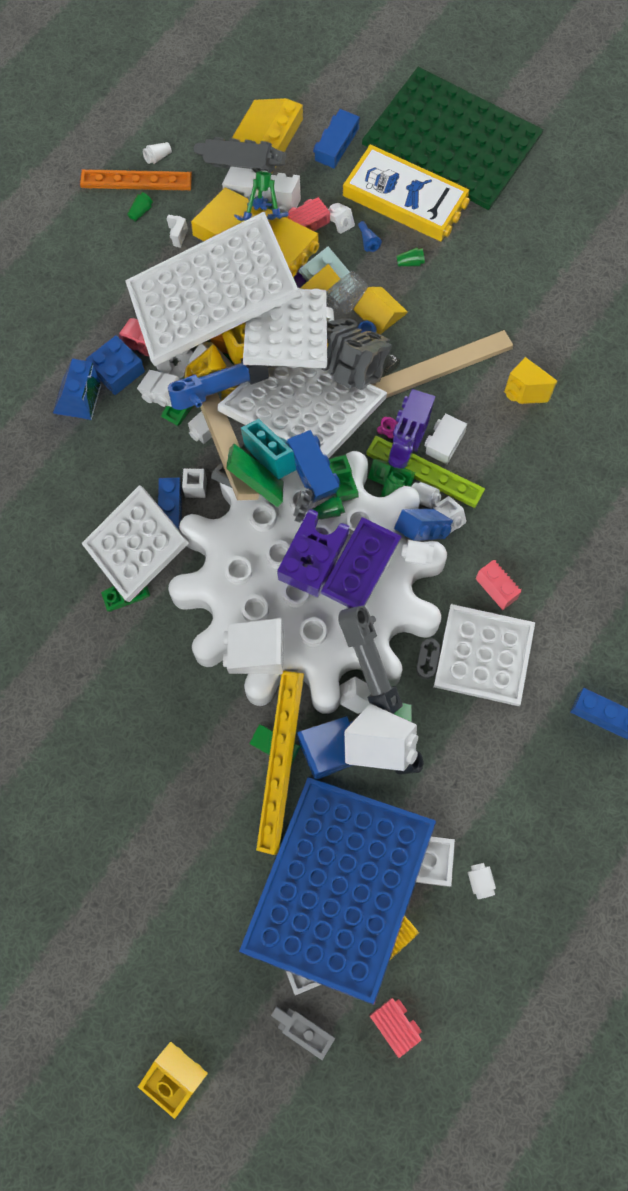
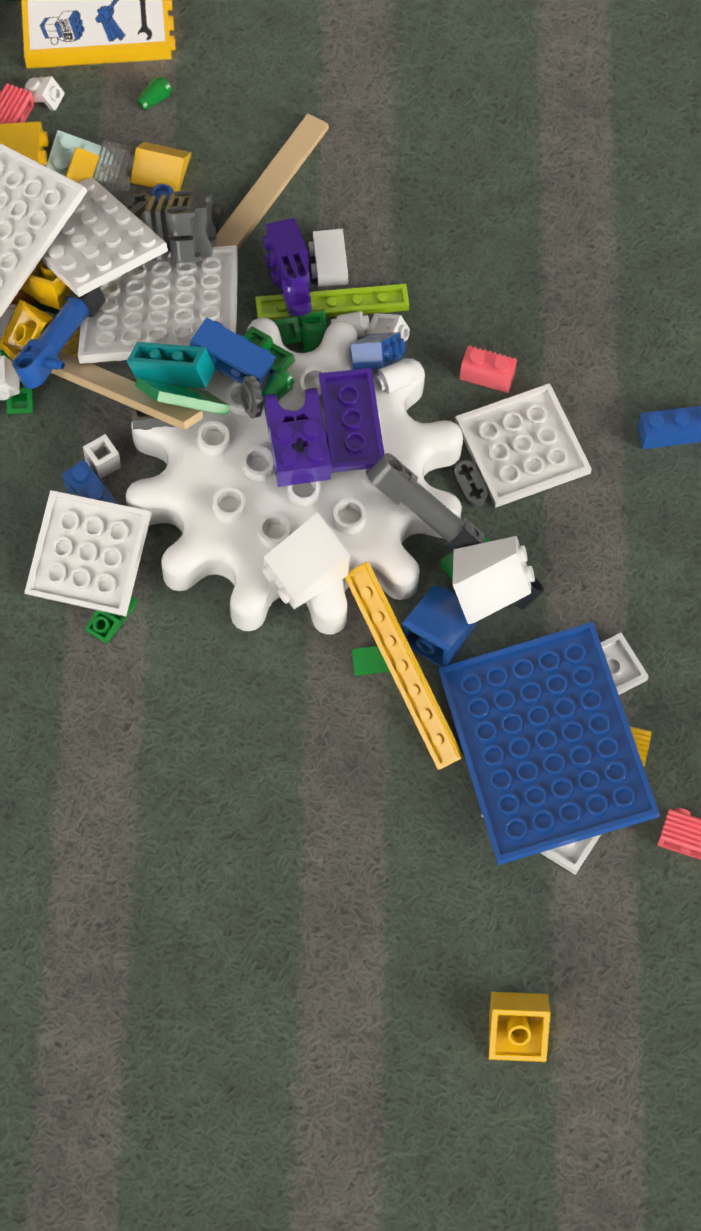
camera: 40 degrees left, 5 degrees down
(199, 428) = (64, 396): white brick -> none
(303, 1032) = (608, 898): light grey hinge -> none
(354, 695) = (431, 558): white brick -> none
(370, 240) = (96, 99): blue cone -> none
(385, 422) = (260, 275): dark pink plate -> none
(481, 881) = (673, 653): white brick -> none
(529, 384) = (377, 152): yellow slope -> none

